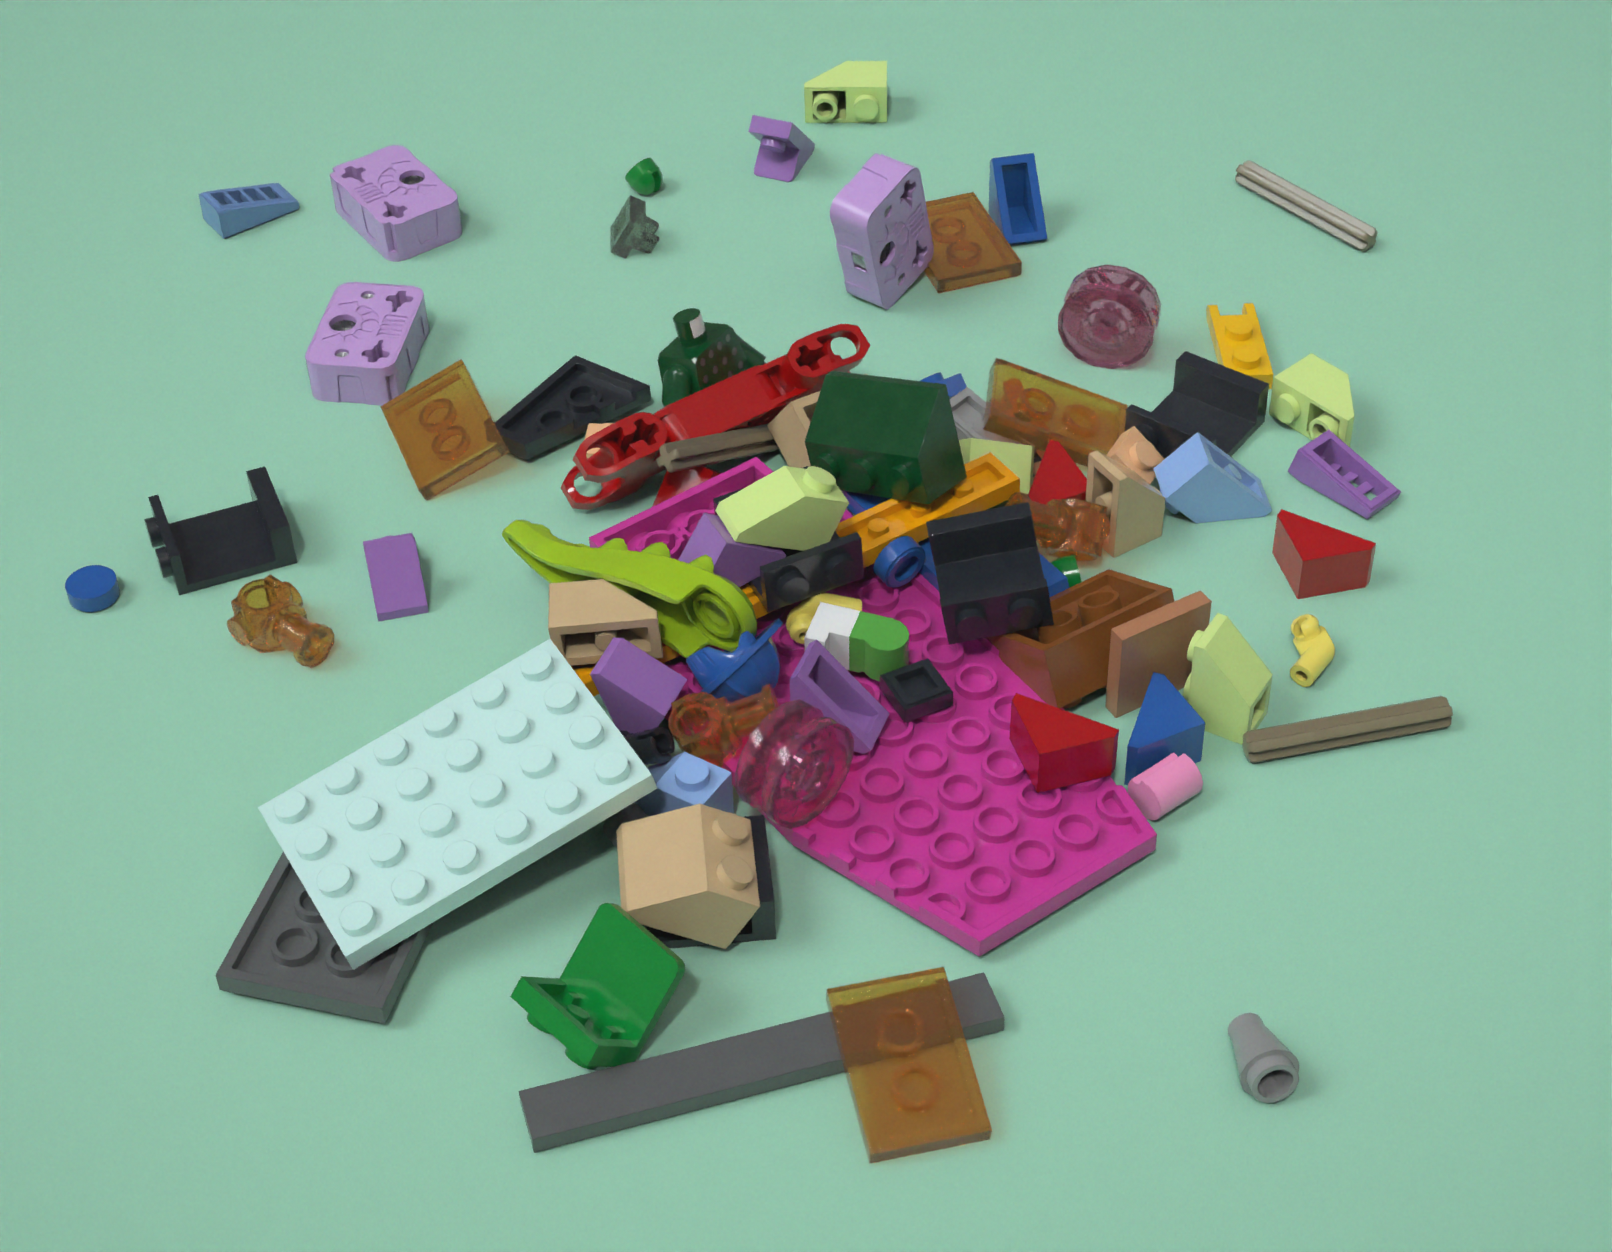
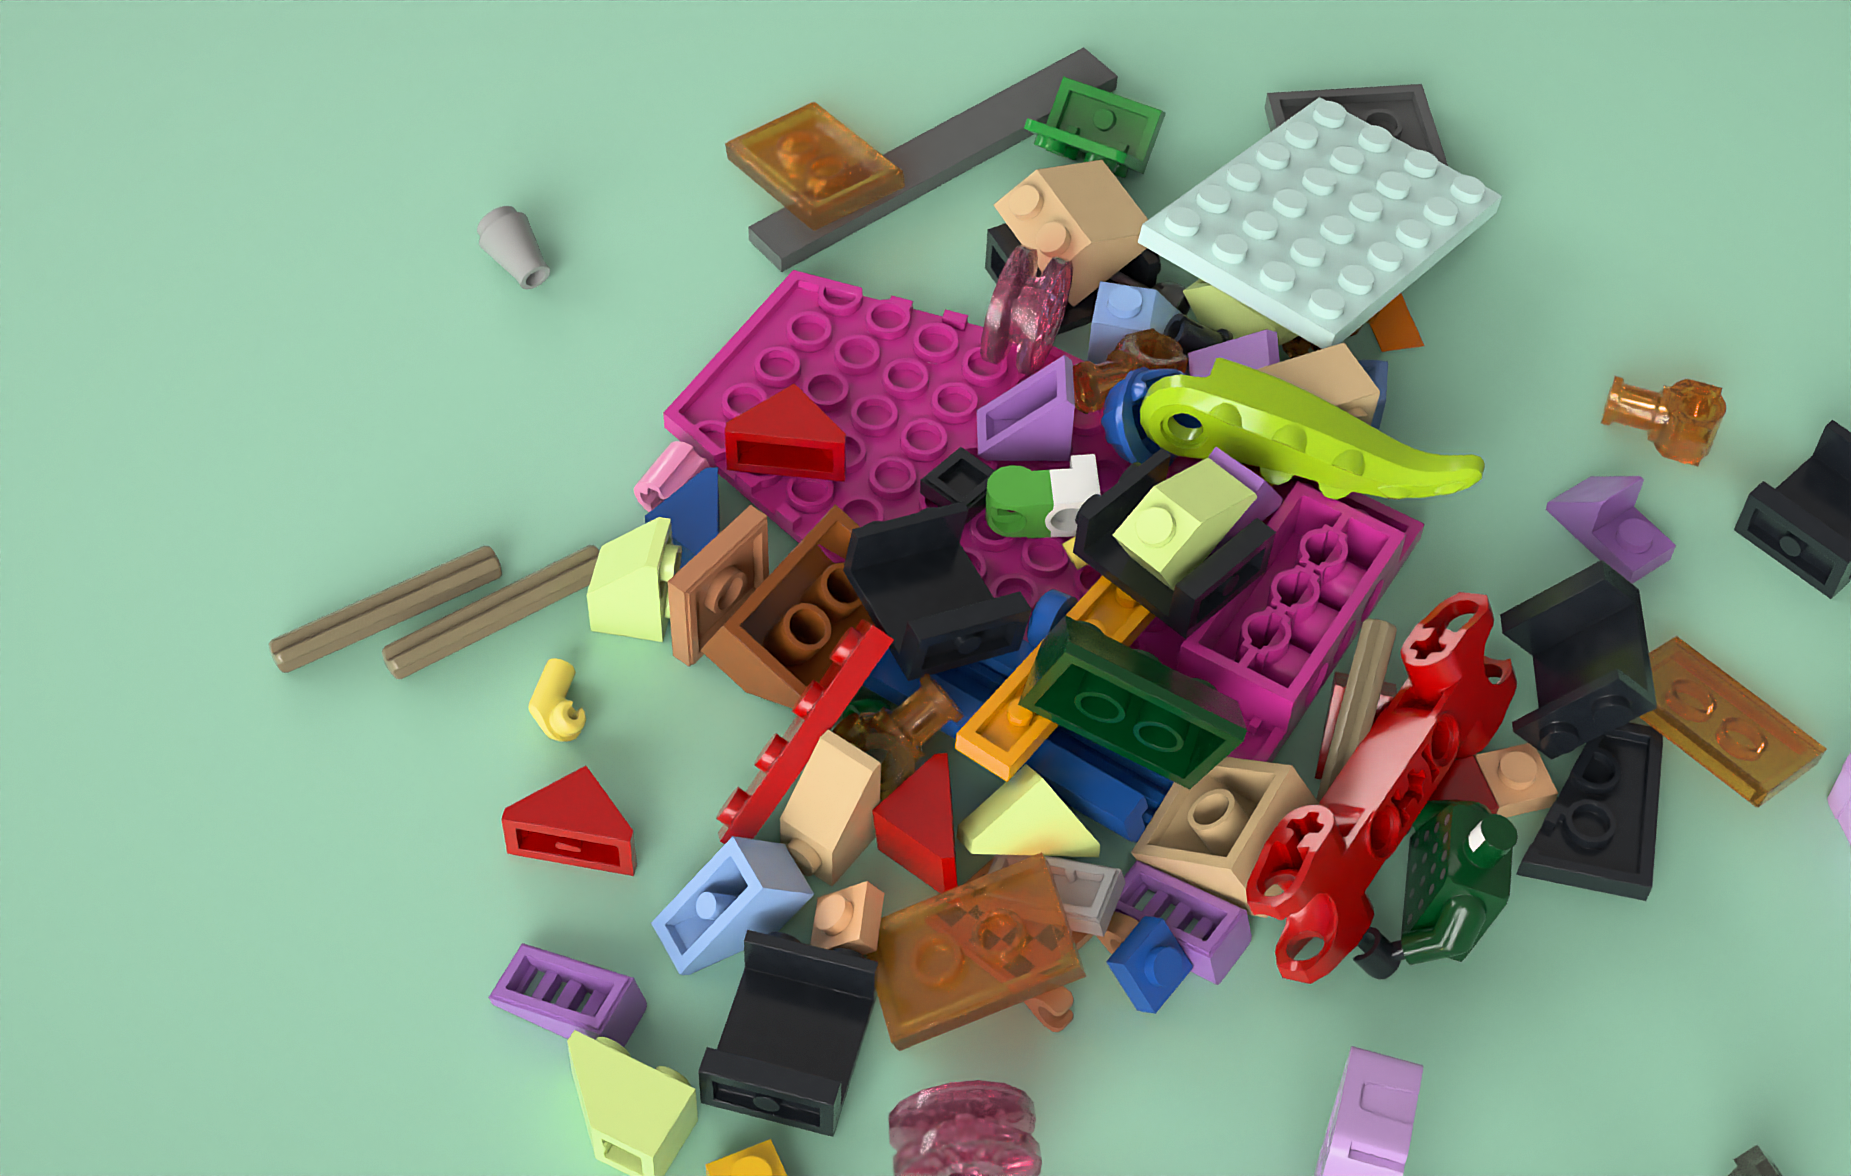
camera: 155 degrees right, 10 degrees up
(520, 448) = (1586, 659): none -> black panel
(1118, 527) = (816, 713): none -> red wing
(1443, 753) = (384, 609): none -> dark tan axle

